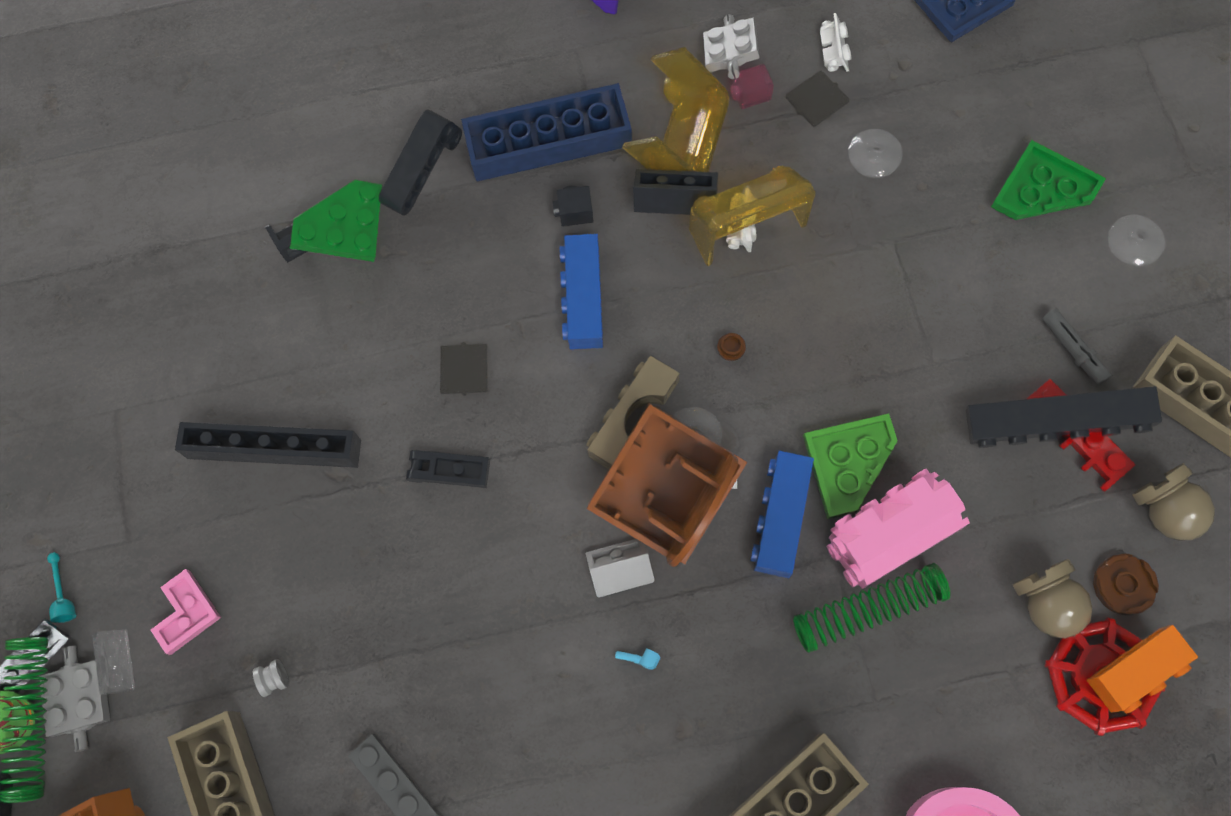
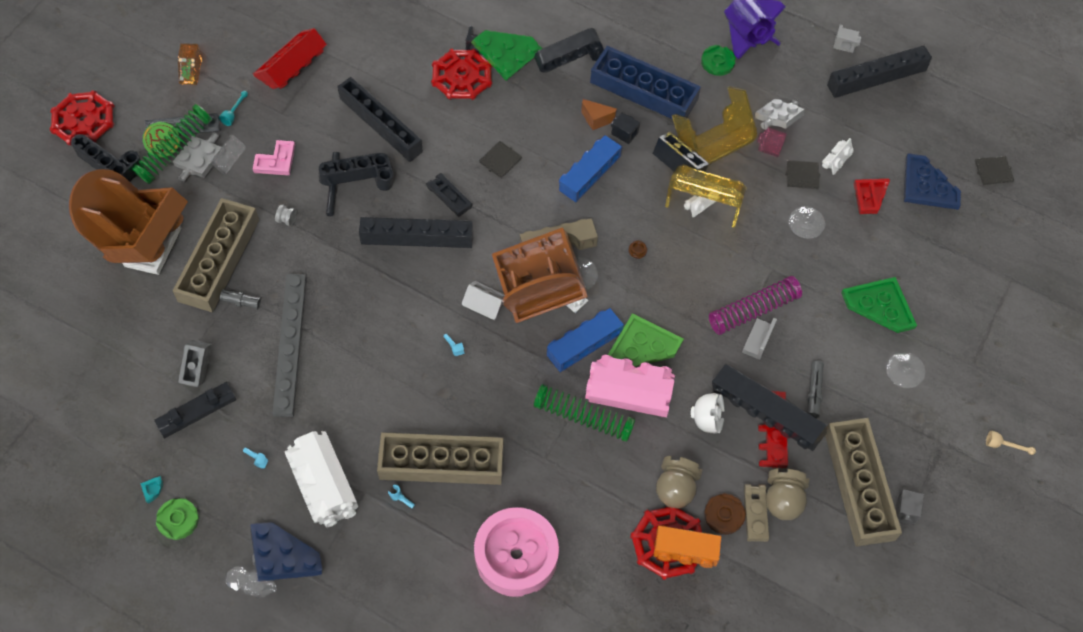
camera: 35 degrees right, 10 degrees down
(71, 460) = (290, 59): none -> red slope
(288, 580) = (332, 191): none -> black bar
(307, 542) = (358, 168): none -> black beam
(312, 312) = (464, 81): none -> red plate
(456, 556) = (416, 232): none -> black brick
(525, 215) = (597, 114): none -> dark orange slope
(595, 34) = (718, 60): none -> green tile
(892, 360) = (715, 315): none -> magenta piece
(912, 63) = (870, 194): none -> red wing
(964, 337) = (758, 338): none -> light grey panel
(1002, 481) = (708, 413): none -> white cylinder
(1154, 549) = (756, 513): none -> dark tan plate

